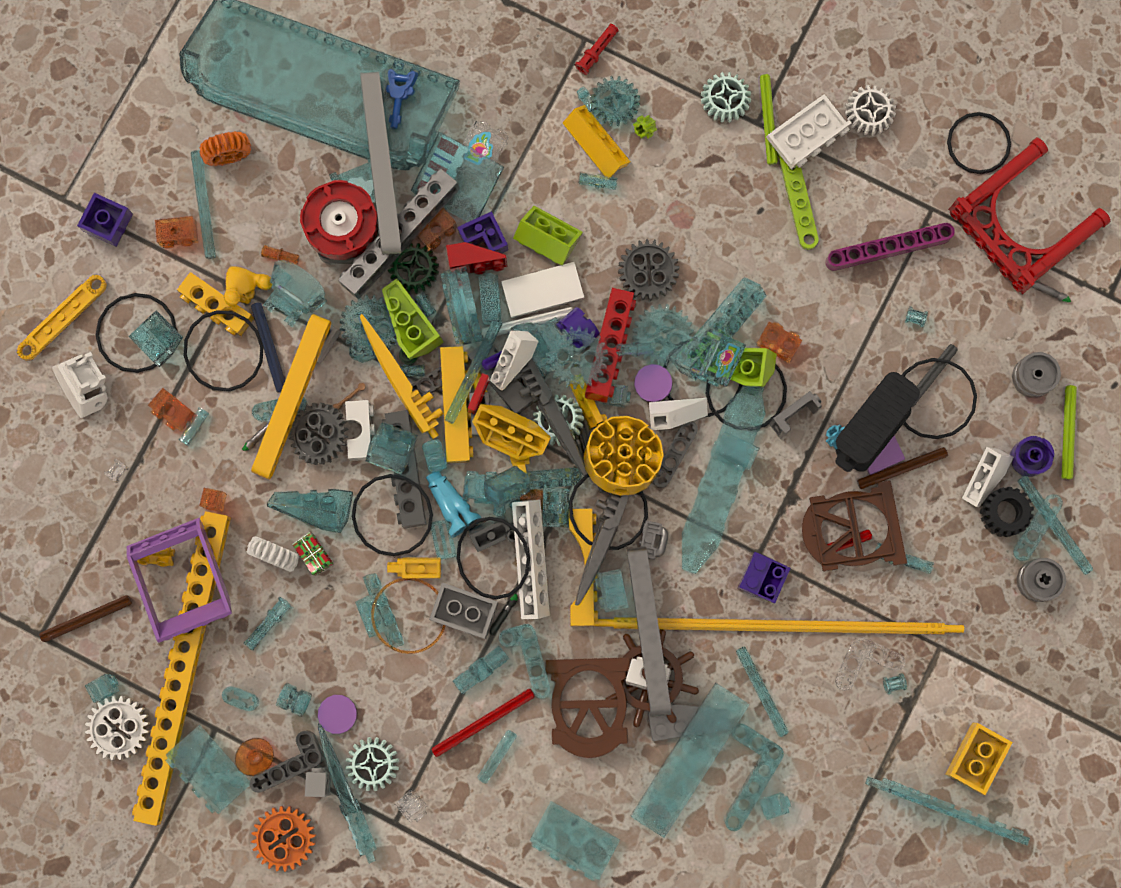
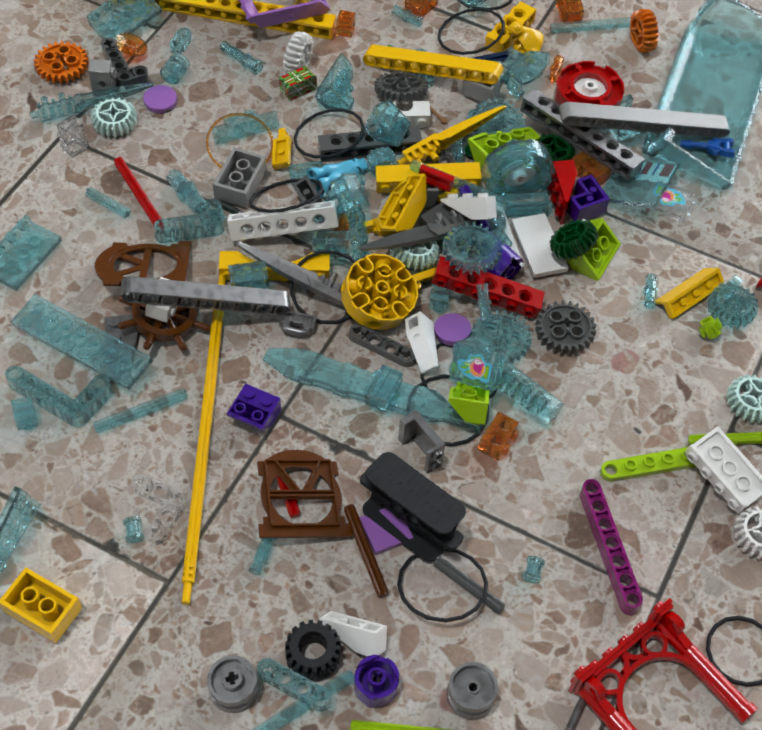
camera: 85 degrees right, 25 degrees down
(543, 264) = (574, 239): none -> dark green gear

